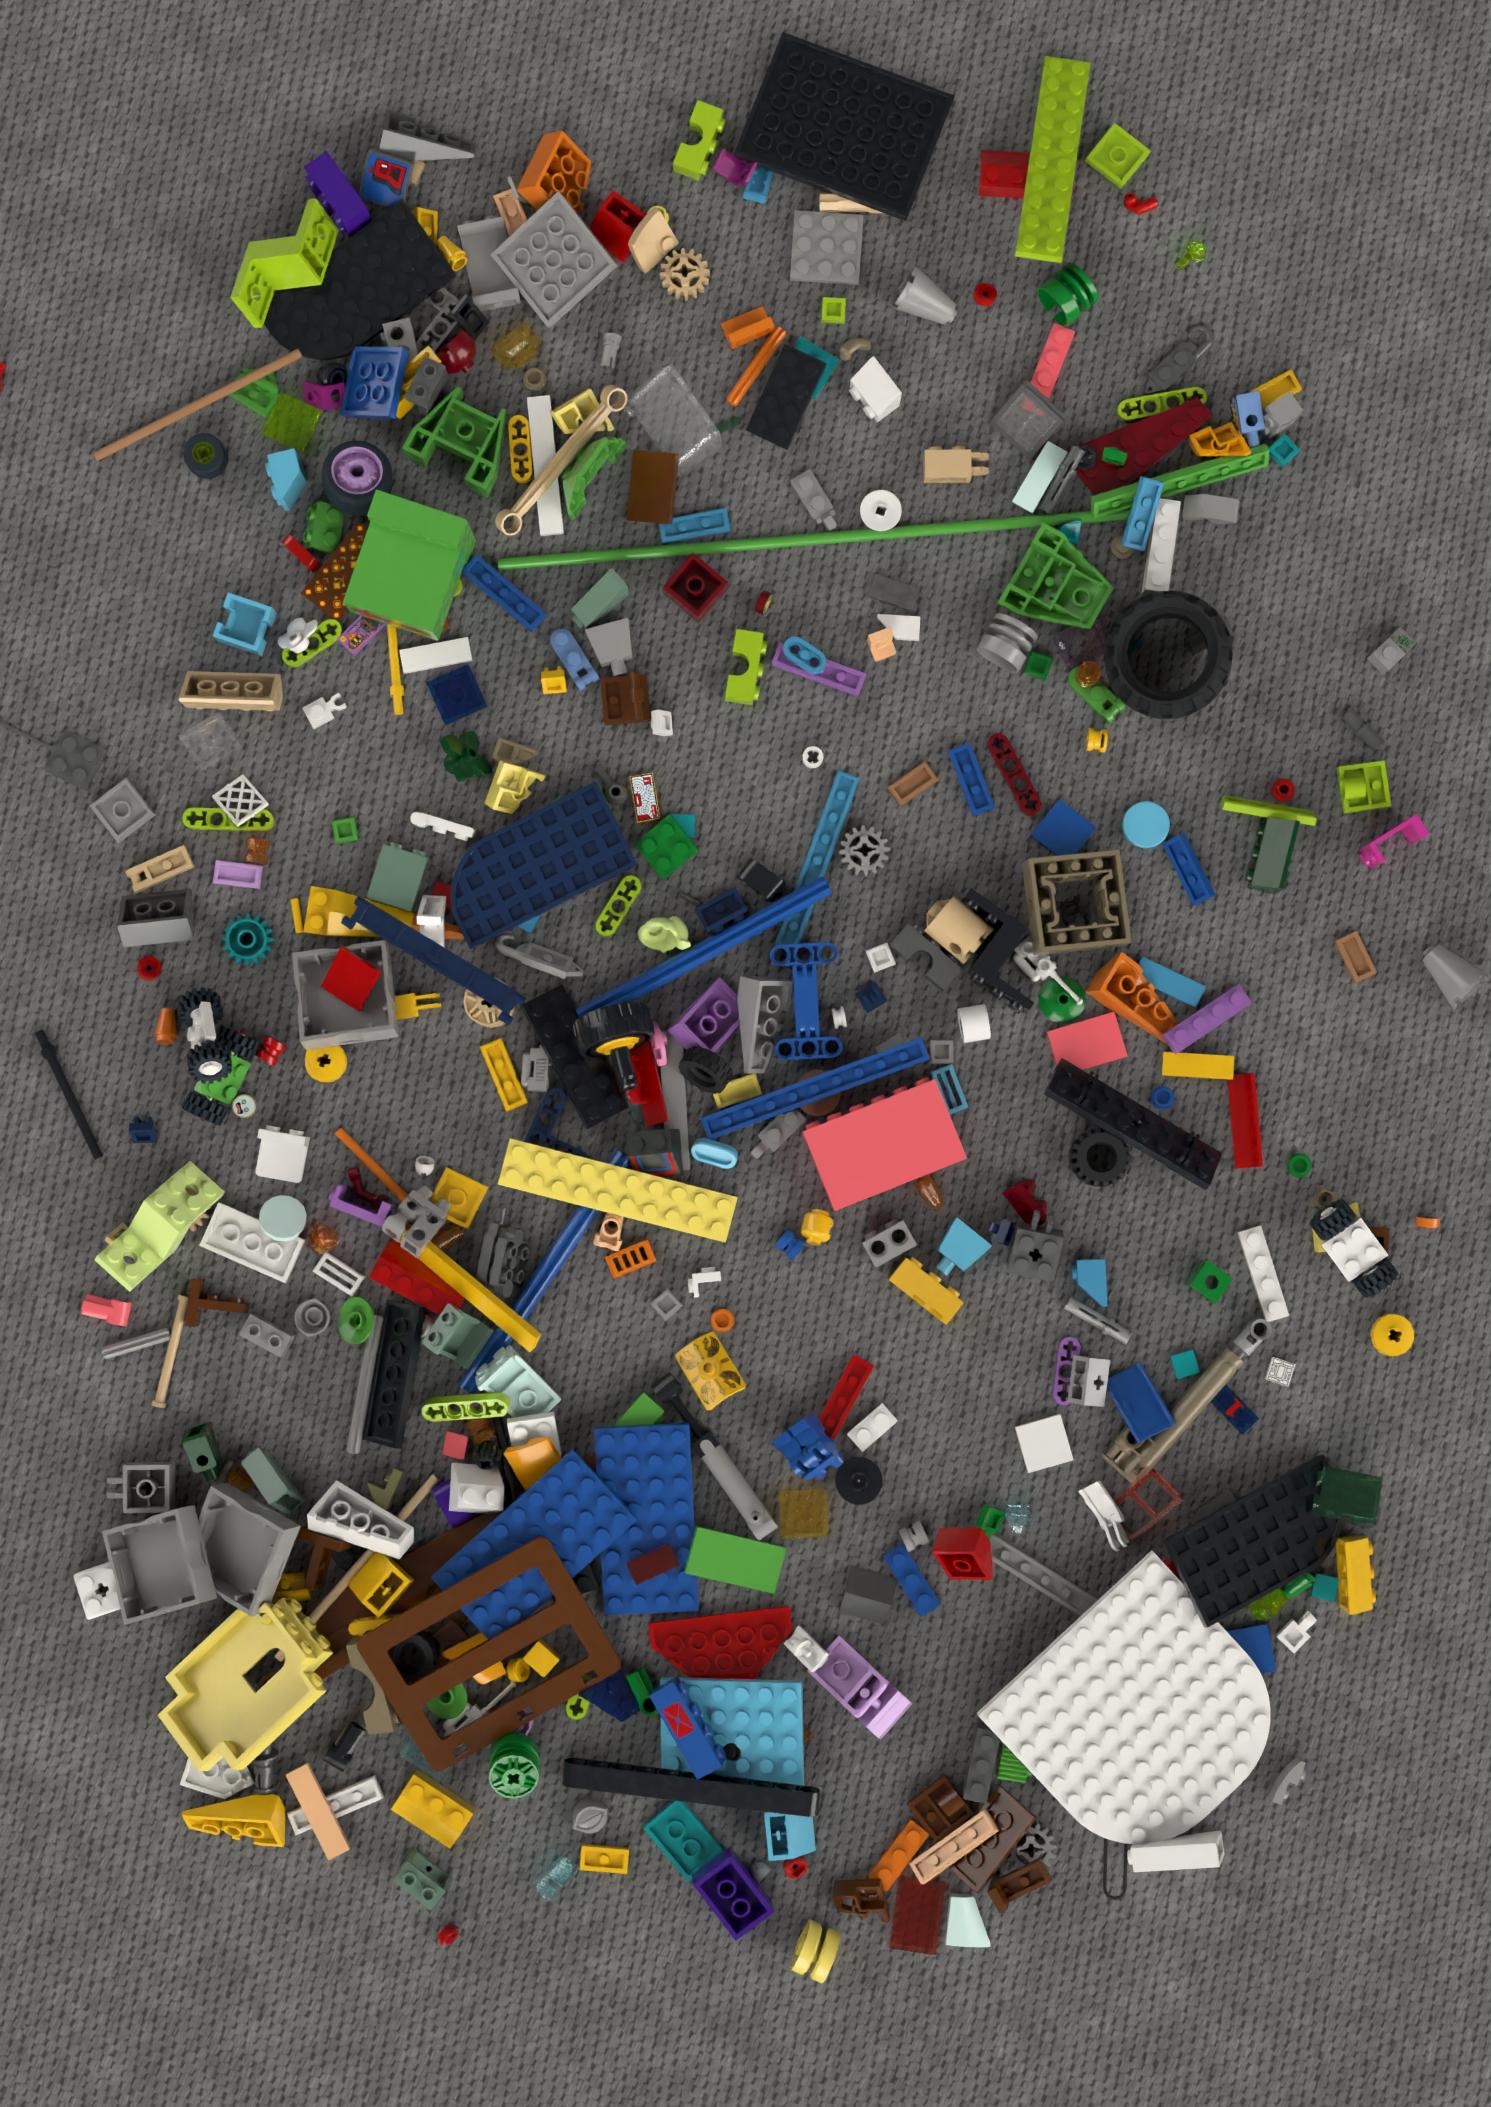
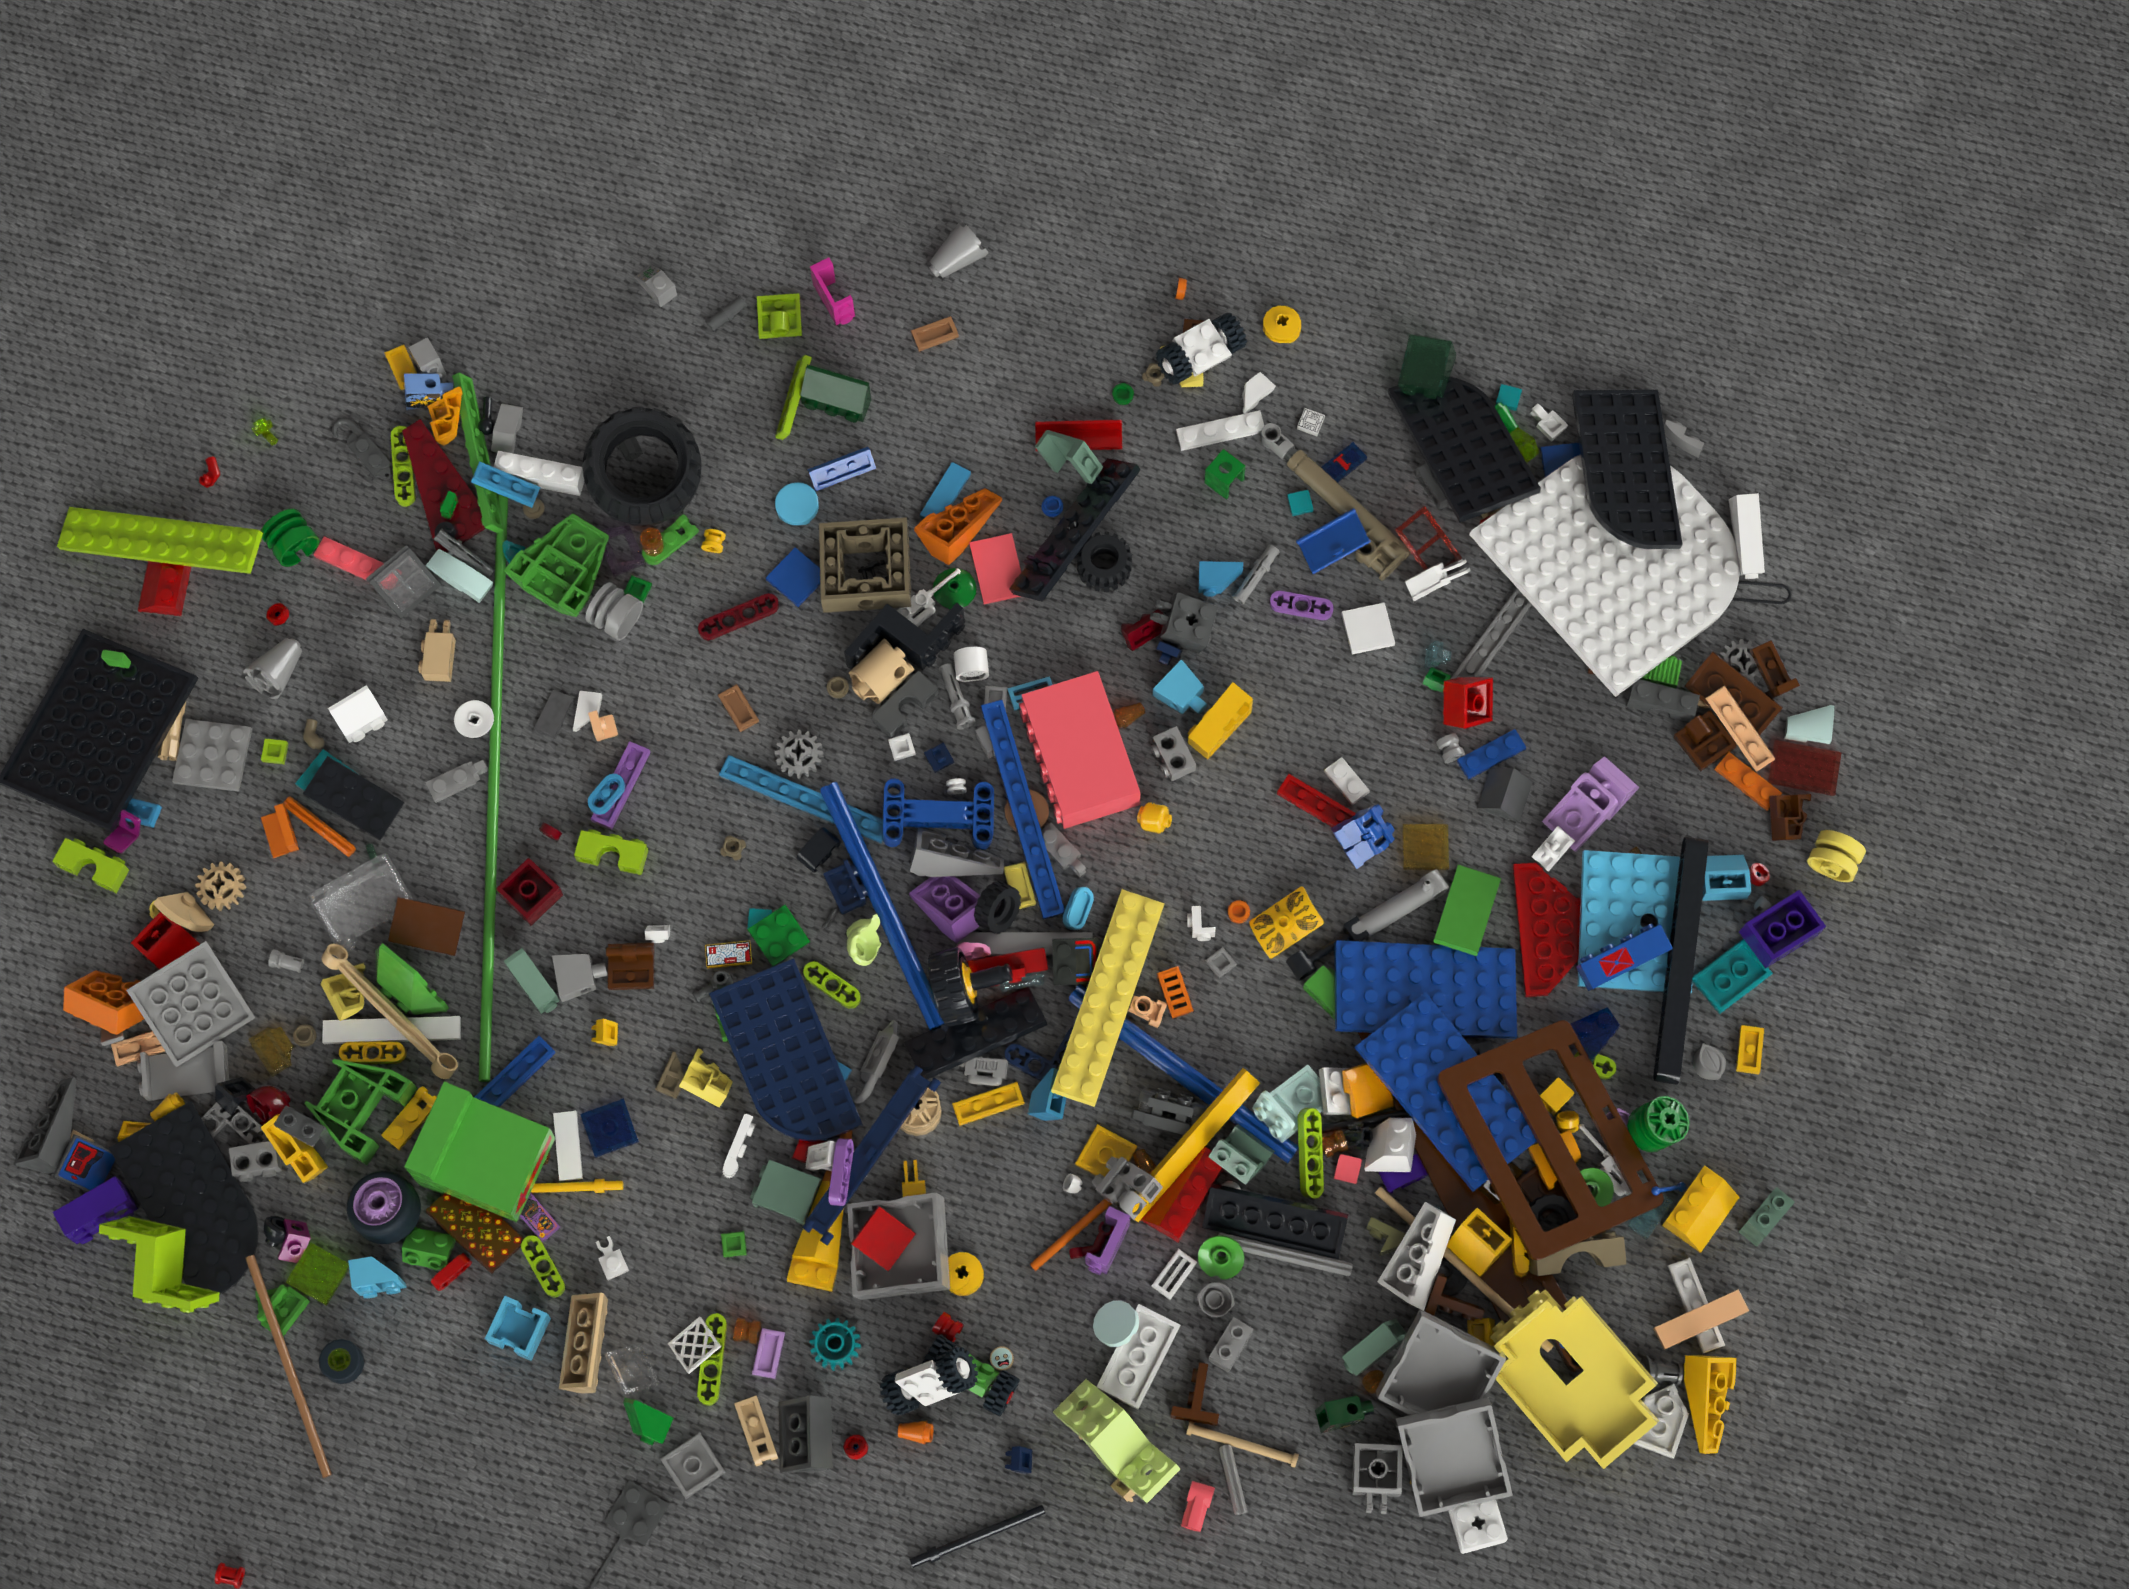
camera: 85 degrees left, 15 degrees down
(159, 762) = (647, 1421): none -> green slope
(282, 1154) = (1052, 1322): white bracket -> none
(297, 635) = (534, 1277): white plate -> none
(297, 915) = (815, 1297): yellow piece -> none
(323, 1238) = (1138, 1285): clear orange cone -> none
(342, 1750) = (1642, 1294): black piece -> none
(374, 382) = (289, 1184): blue plate -> none
(410, 930) = (841, 1172): none -> medium lavender beam
(448, 1935) = (1822, 1201): red plate -> none
(454, 494) = (409, 1119): none -> yellow plate
(457, 1788) = (1680, 1186): none -> blue hinge
(463, 757) = (673, 1120): dark green plant -> none
(503, 1129) = (1043, 1102): none -> dark azure slope
(555, 1877) = (1767, 1096): clear light blue arm -> none
(572, 658) = (585, 1014): medium blue plate -> none
(642, 1688) = (1589, 1003): green piece -> none
(652, 1563) = (1468, 983): clear red tile -> none
(695, 525) = (468, 891): dark azure tile -> none
(754, 796) = (738, 844): none -> dark tan plate
(790, 1244) = (1169, 842): blue wheel -> none
(806, 756) = (702, 803): white bush -> none
(858, 1480) = (1397, 794): black piece -> none
(918, 132) = (116, 659): none -> bright green tile
(928, 1013) = (959, 705): none -> light grey pin
(942, 885) = (837, 687): none -> dark tan plate
(971, 779) = (739, 654): blue plate -> none
(1088, 1381) = (1311, 583): light grey brick -> none
(1117, 156) = (162, 488): lime plate -> none
(1198, 1065) = (1024, 473): yellow tile -> none
(1206, 1019) = (982, 462): medium lavender plate -> none
(1214, 486) = (486, 425): none -> black bar
(1222, 1097) = (1058, 448): none -> sand green panel
(1246, 1721) = (1627, 466): none -> black plate
(1275, 790) = (775, 390): red plate -> none
(1283, 450) = (459, 363): teal plate -> none
(1311, 1309) = (1255, 390): none -> white slope
(1355, 1574) = (1497, 369): yellow slope -> none

